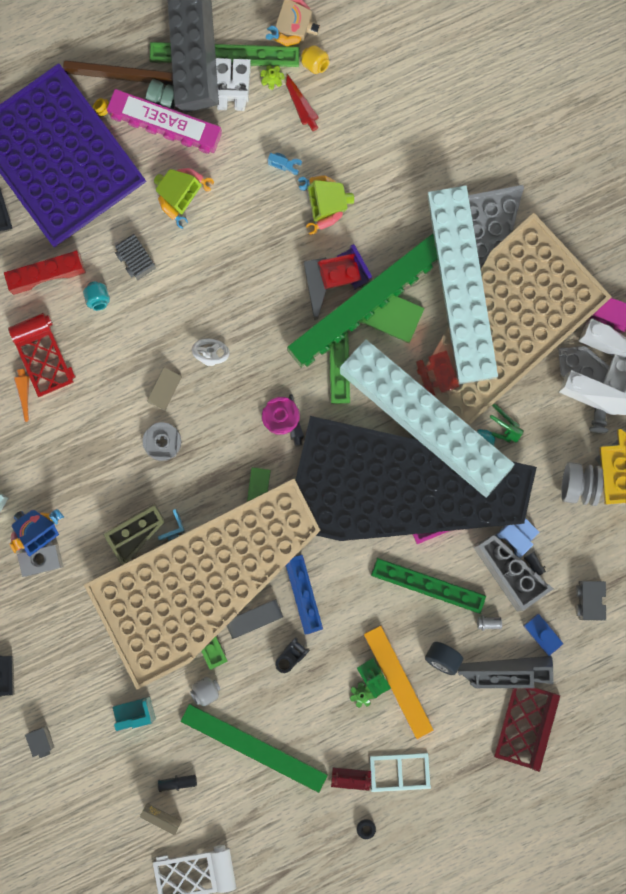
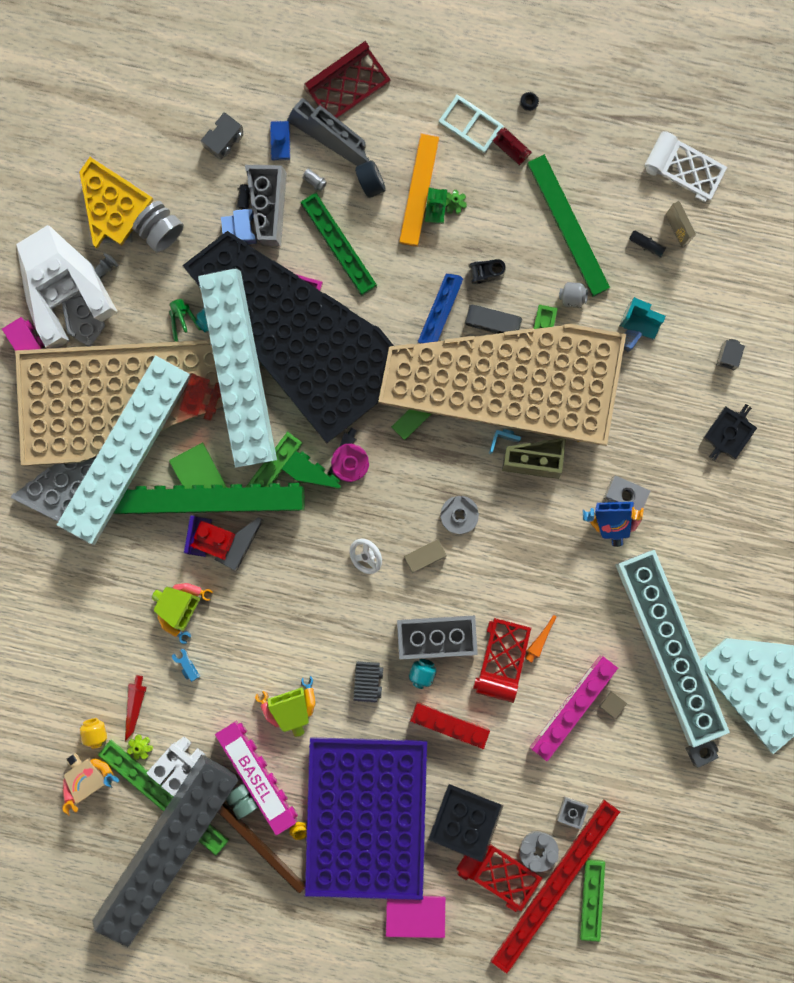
camera: 140 degrees left, 0 degrees up
(106, 331) = (437, 637): none -> light grey brick
(130, 691) = (631, 339): none -> medium blue slope
(310, 381) = (306, 472): none -> green slope

